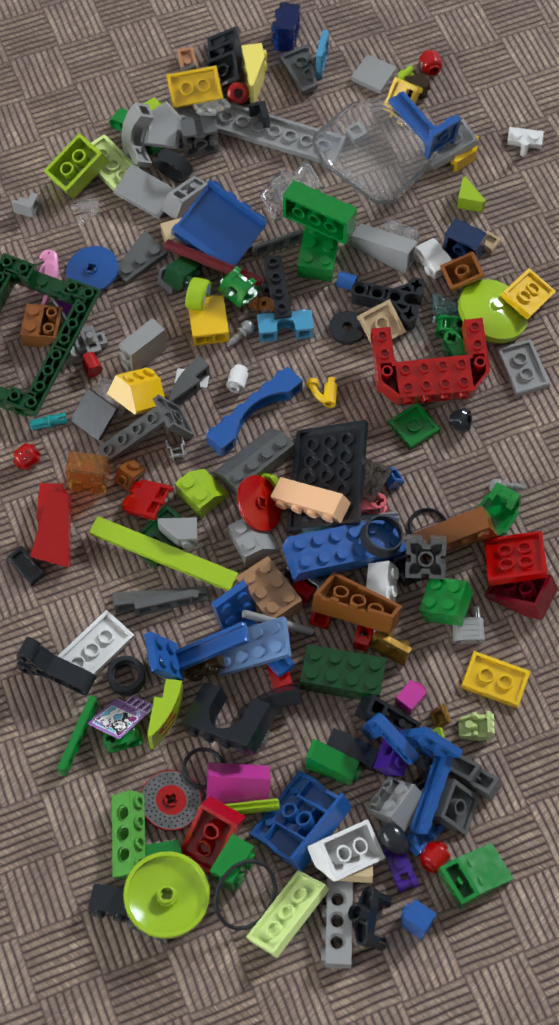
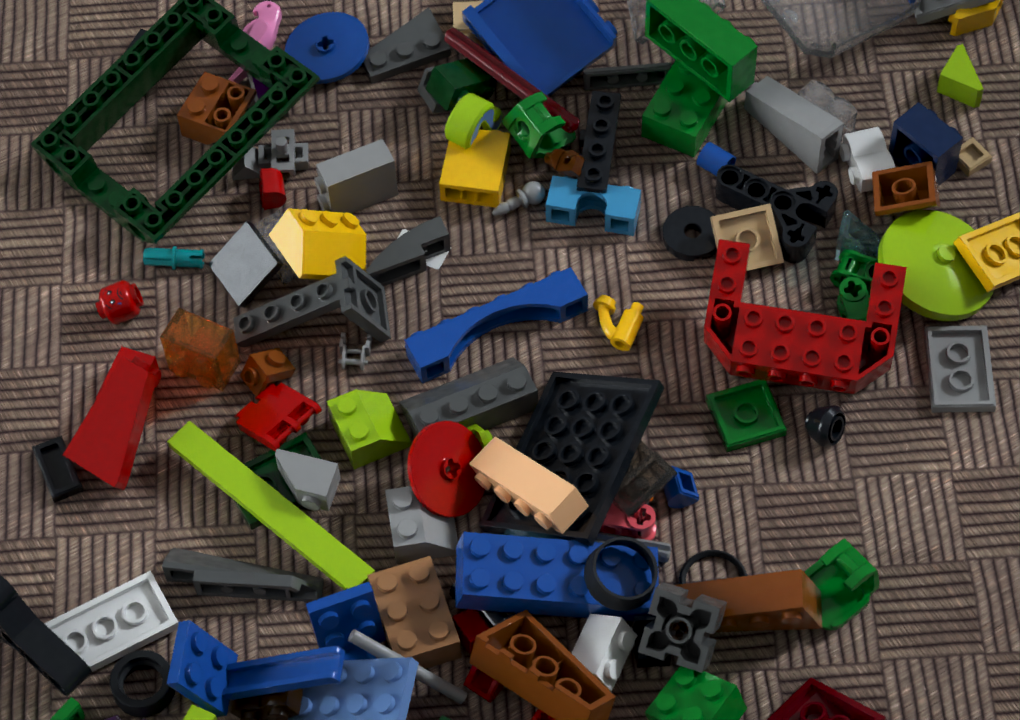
camera: 20 degrees right, 5 degrees down
(237, 378) = (488, 267): white brick -> none
(512, 486) = (867, 552): light grey bar -> none
(515, 558) = (836, 672): red plate -> none

